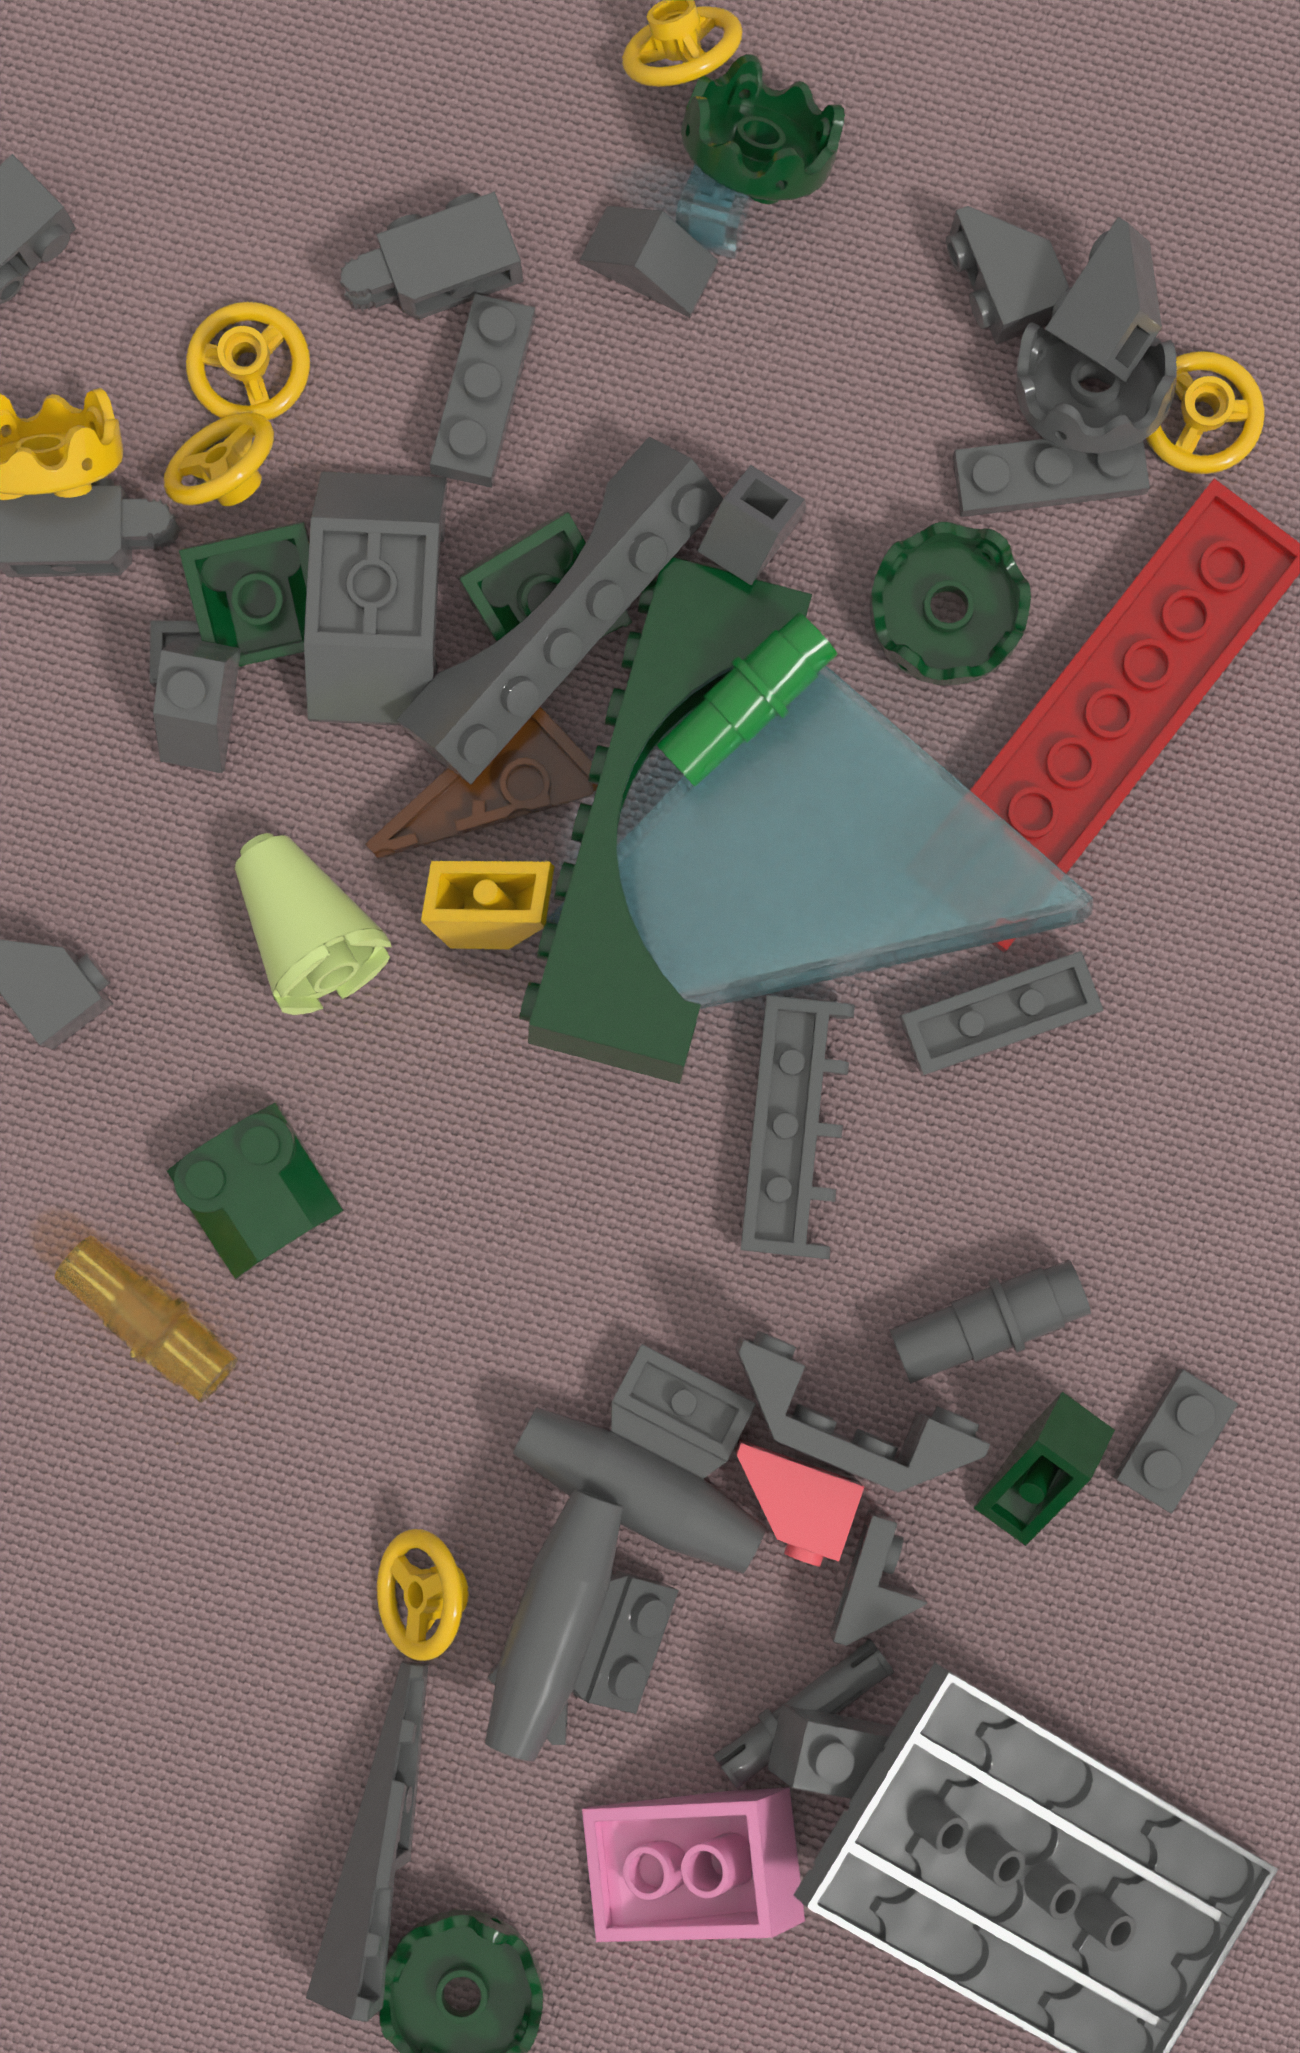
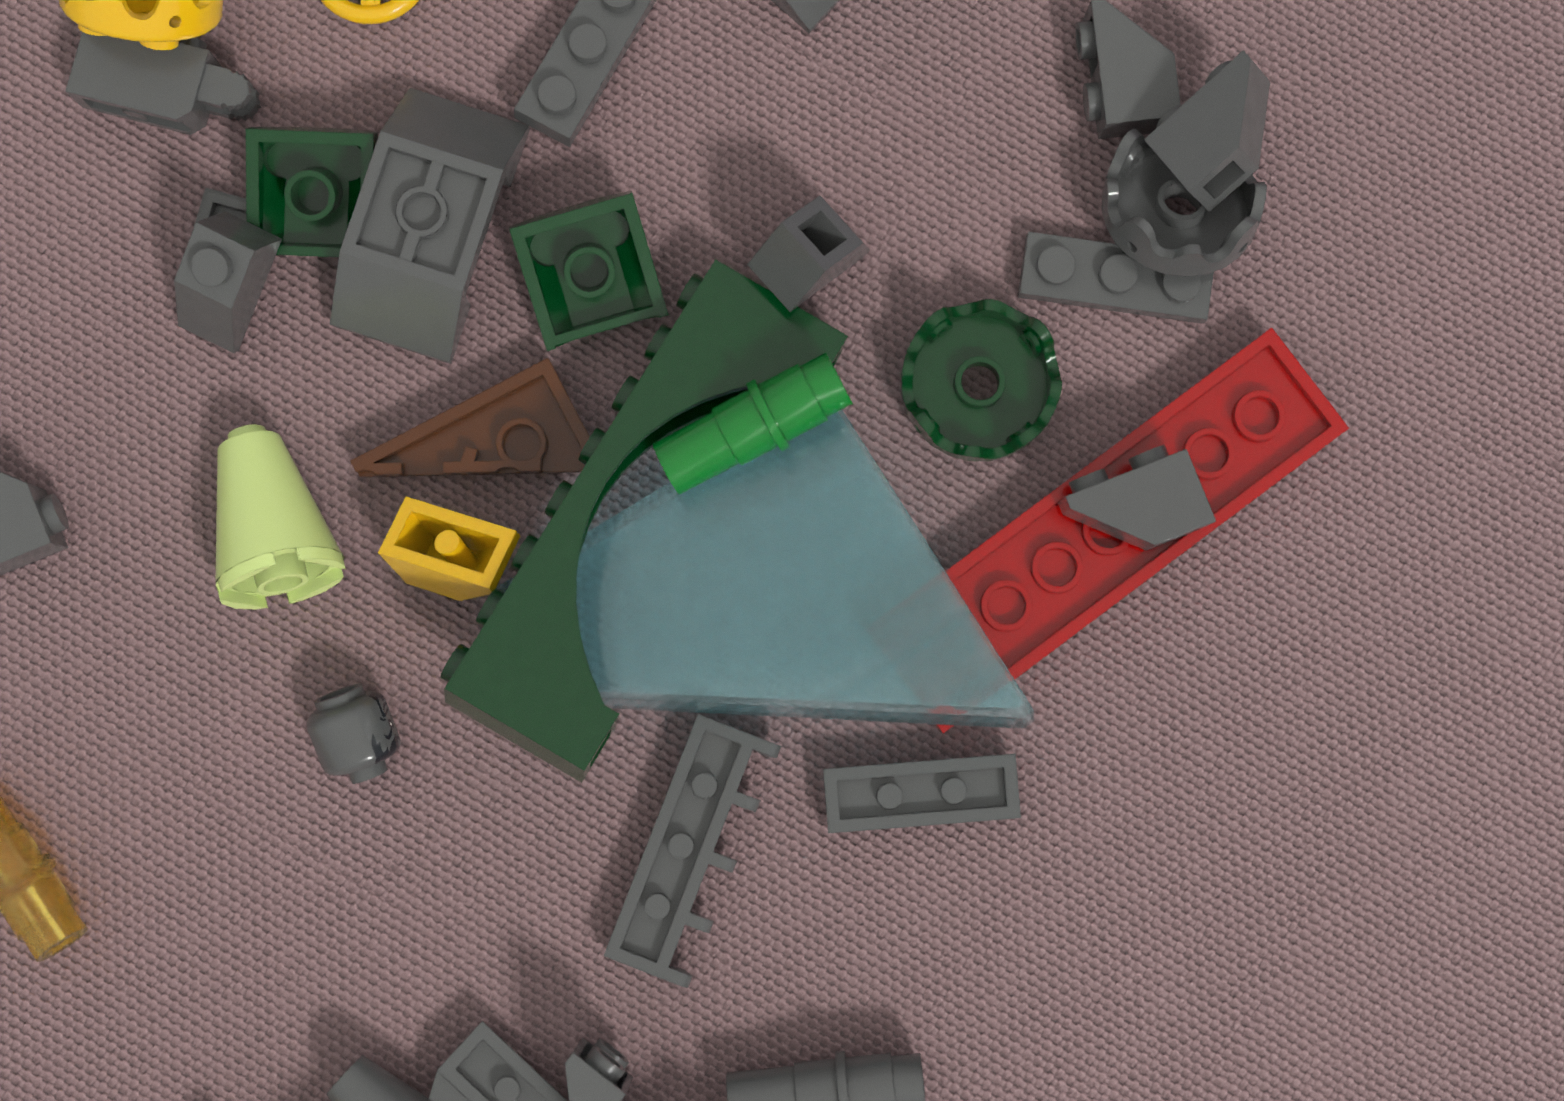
camera: 10 degrees right, 0 degrees up
(227, 467) = (319, 58): yellow piece -> none
(254, 1189) = (152, 766): dark green slope -> none
(441, 1103) = (353, 733): none -> dark grey head
(642, 524) = (504, 352): dark grey arch -> none
(1140, 679) = (1143, 506): none -> dark grey slope
(1225, 408) = (1303, 262): yellow piece -> none

